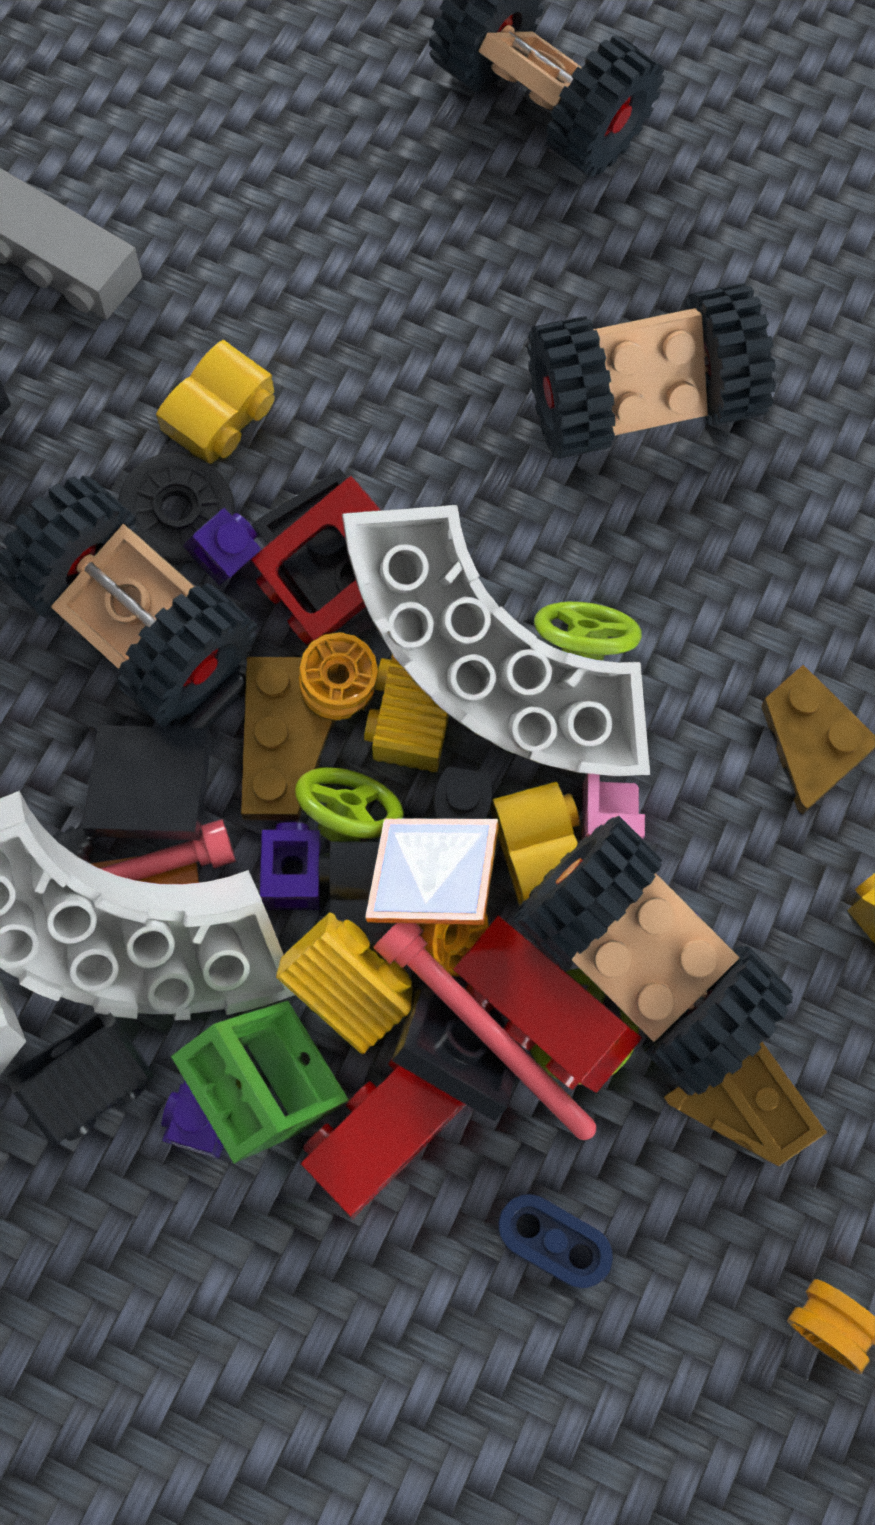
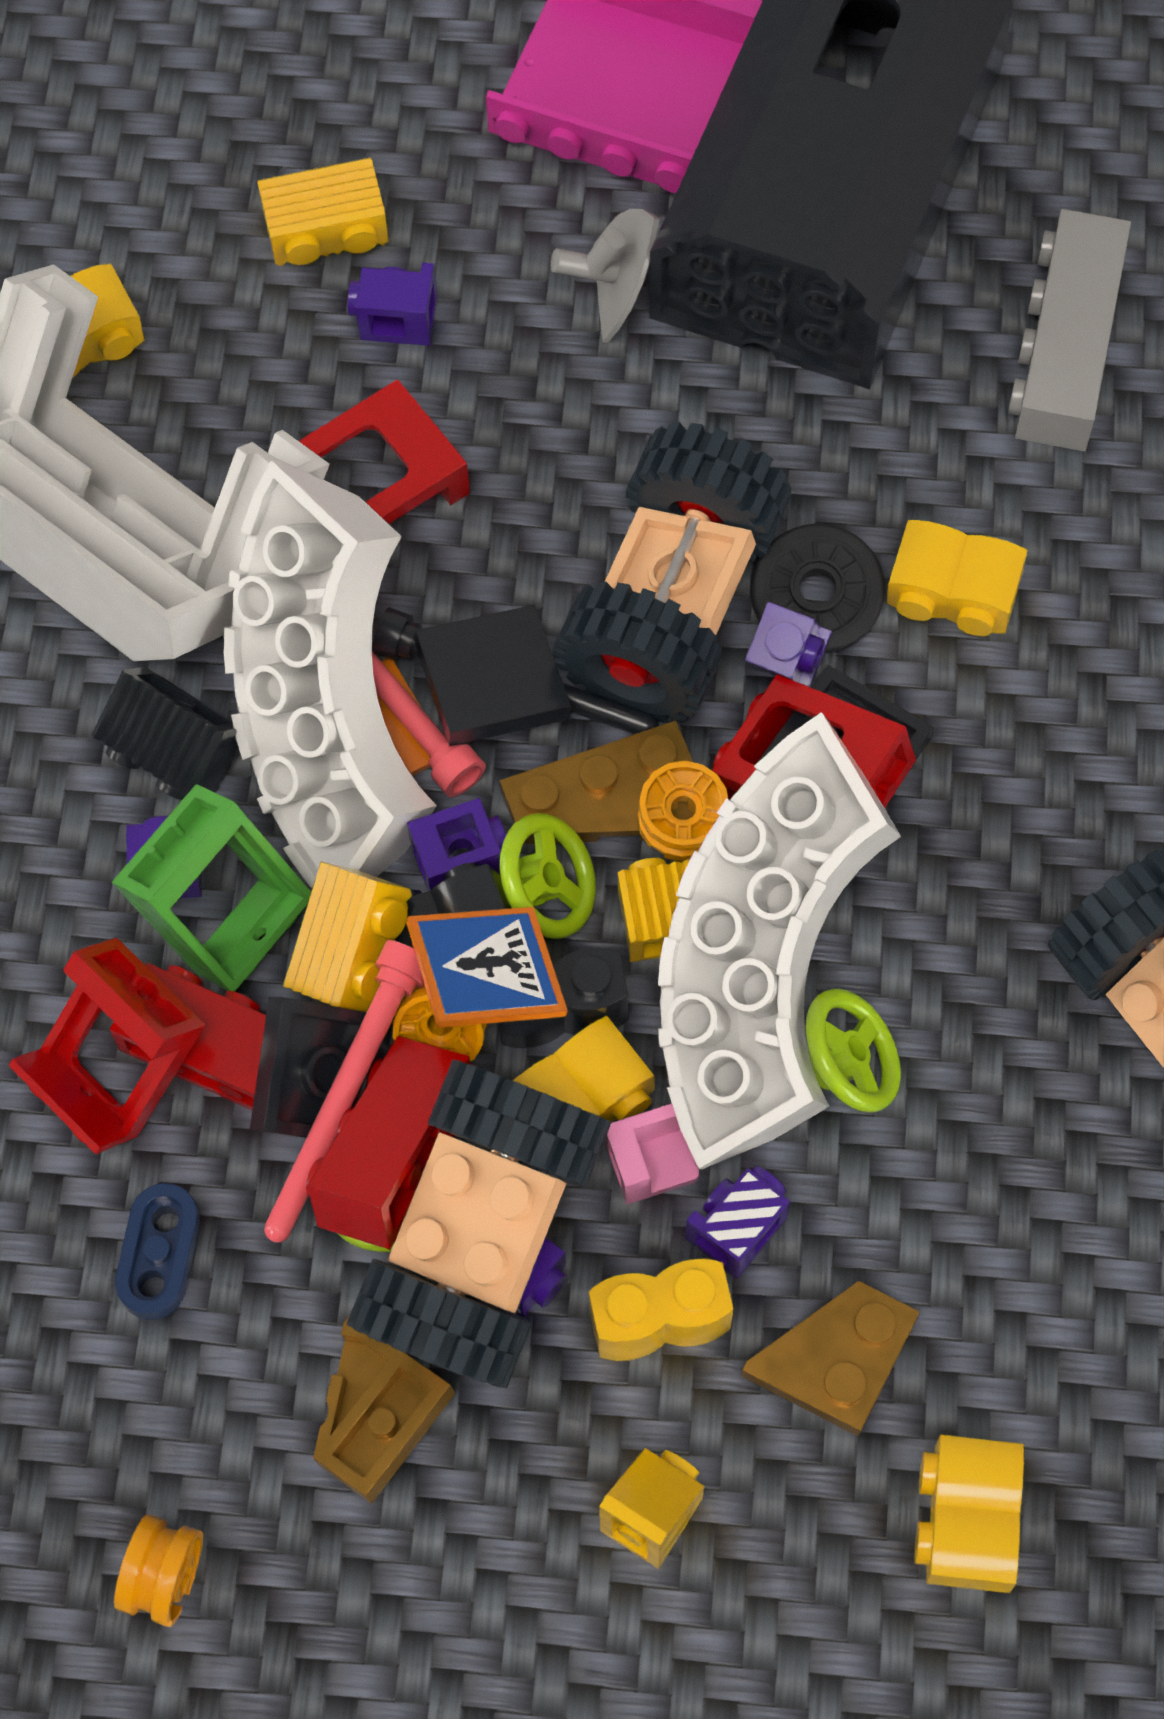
camera: 75 degrees right, 5 degrees down
(349, 1182) = (145, 1009): none -> red window
(690, 763) = (739, 1219): none -> dark purple brick
(744, 839) = (677, 1307): none -> yellow brick

